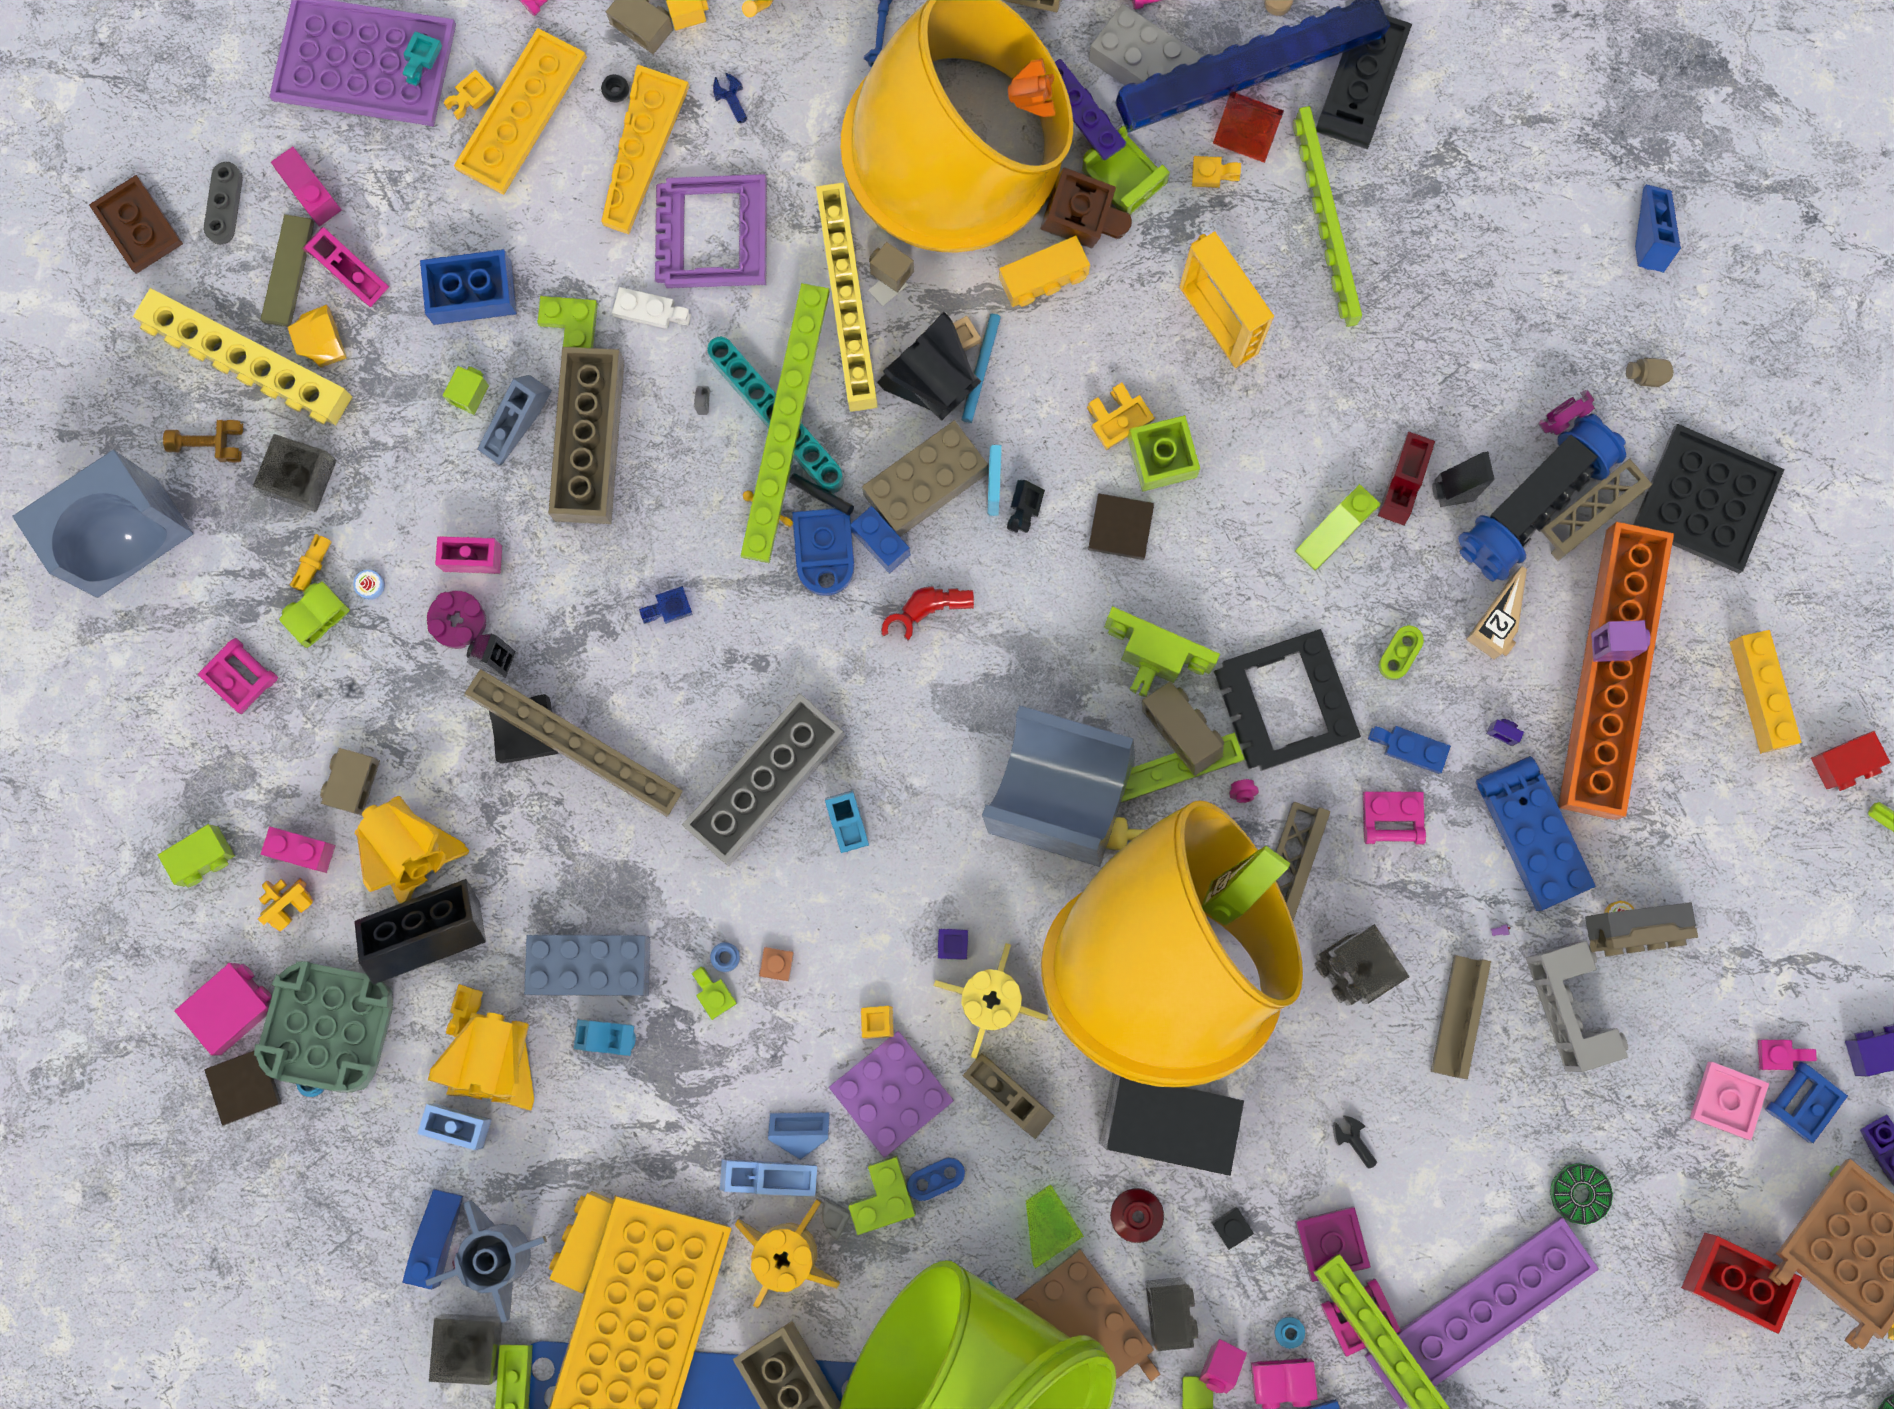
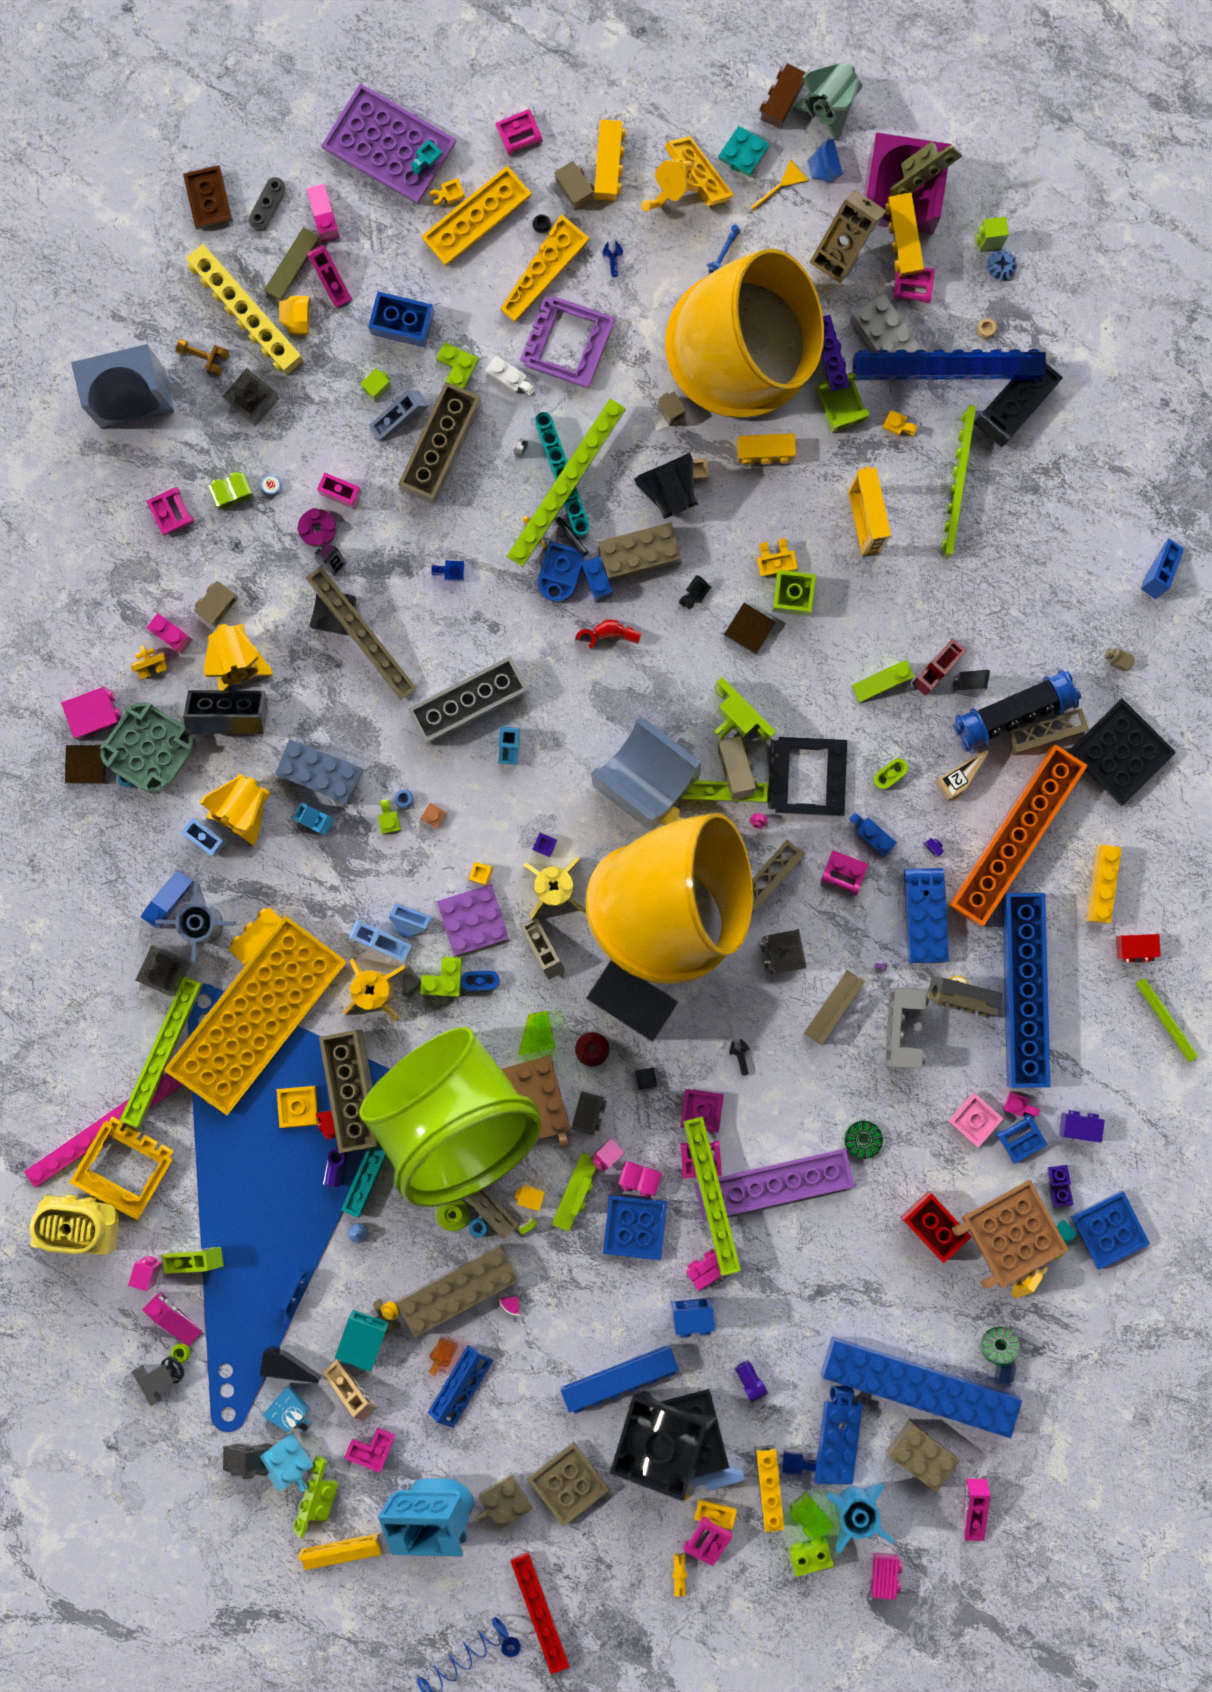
camera: 15 degrees right, 5 degrees up
(196, 856) = (106, 613): lime brick -> none
(310, 563) = (240, 457): yellow pin -> none
(466, 1001) = (237, 766): yellow plate -> none
(846, 297) = (635, 417): light yellow brick -> none
(981, 366) = (703, 493): dark azure bar -> none
(994, 480) = (681, 570): medium azure tile -> none
(1032, 89) = (801, 331): orange brick -> none
(1091, 205) = (806, 418): reddish brown brick -> none
(1243, 885) = (728, 874): lime slope -> none
(1248, 126) = (931, 404): clear red plate -> none
(1283, 1325) = (655, 1145): dark azure plate -> none
(1559, 417) = (1055, 663): magenta plate -> none
(1620, 641) = (1023, 818): medium lavender brick -> none
(1723, 887) = (1026, 990): none -> blue brick

